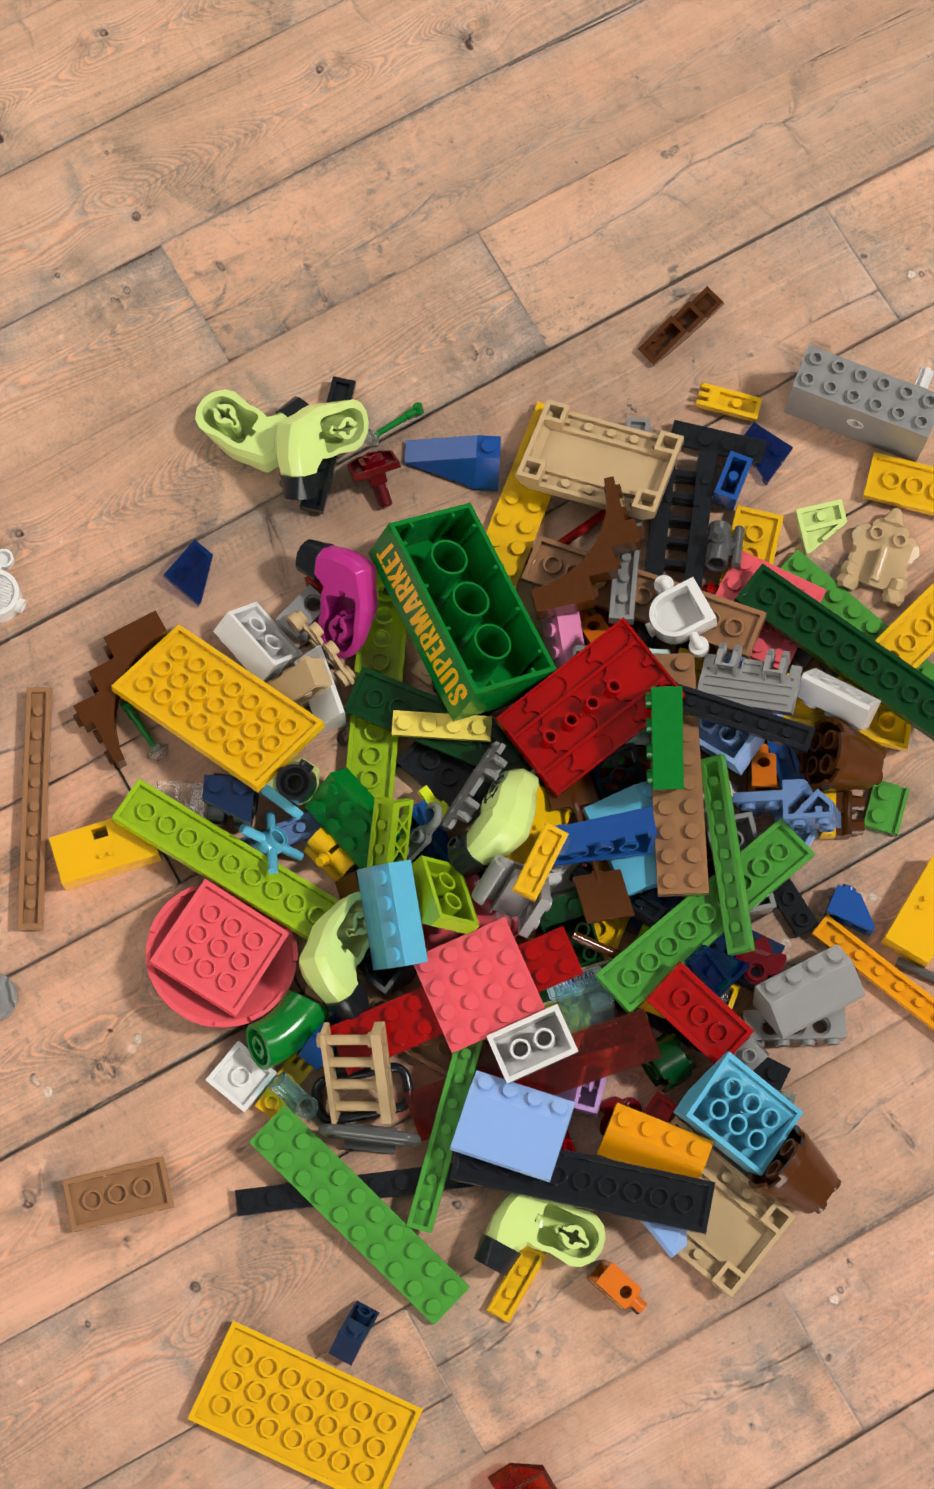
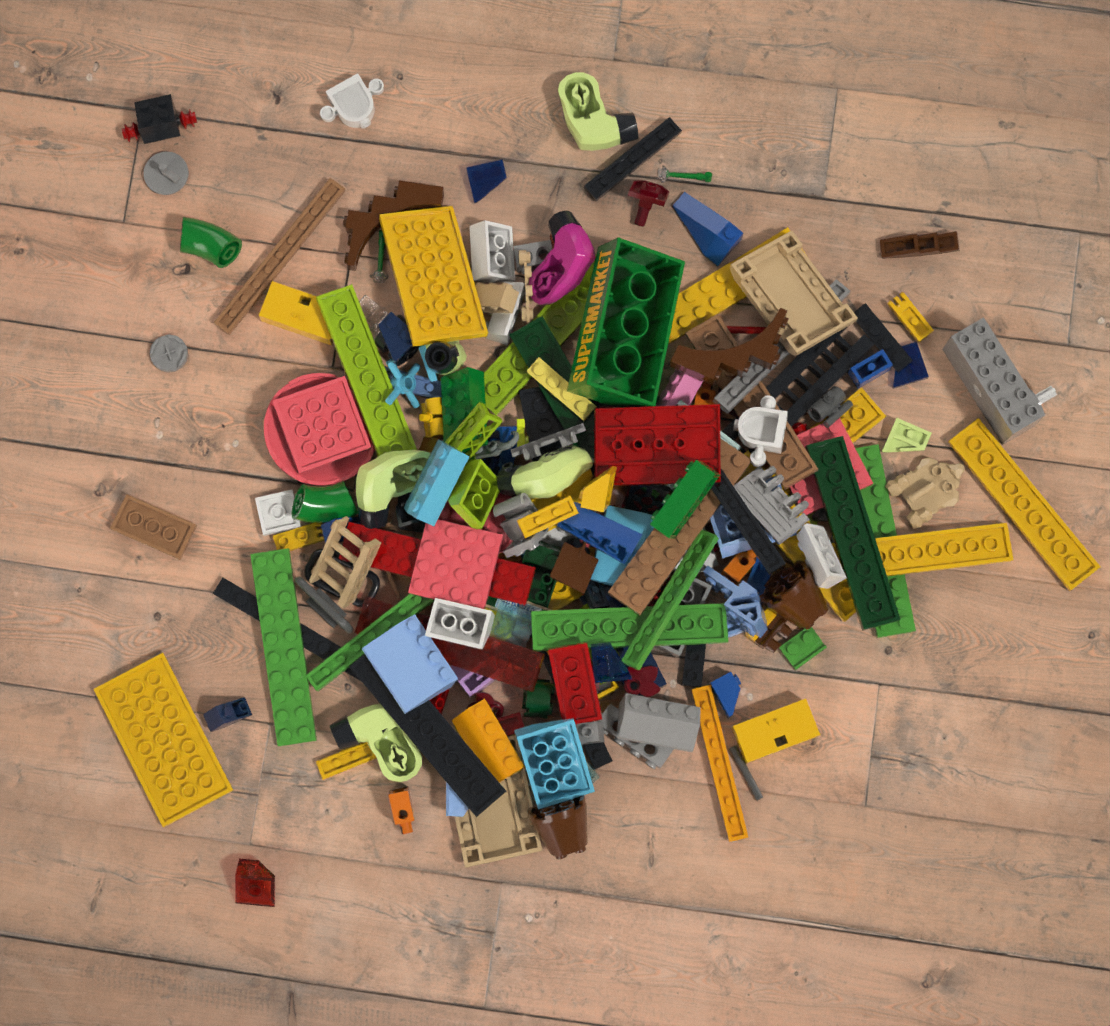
camera: 40 degrees right, 5 degrees up
(292, 1095) = (298, 546): clear light blue piece -> none
(314, 435) = (623, 147): yellowish green piece -> none
(568, 797) = (598, 491): none -> yellow slope
(594, 944) = (546, 593): reddish brown bar -> none

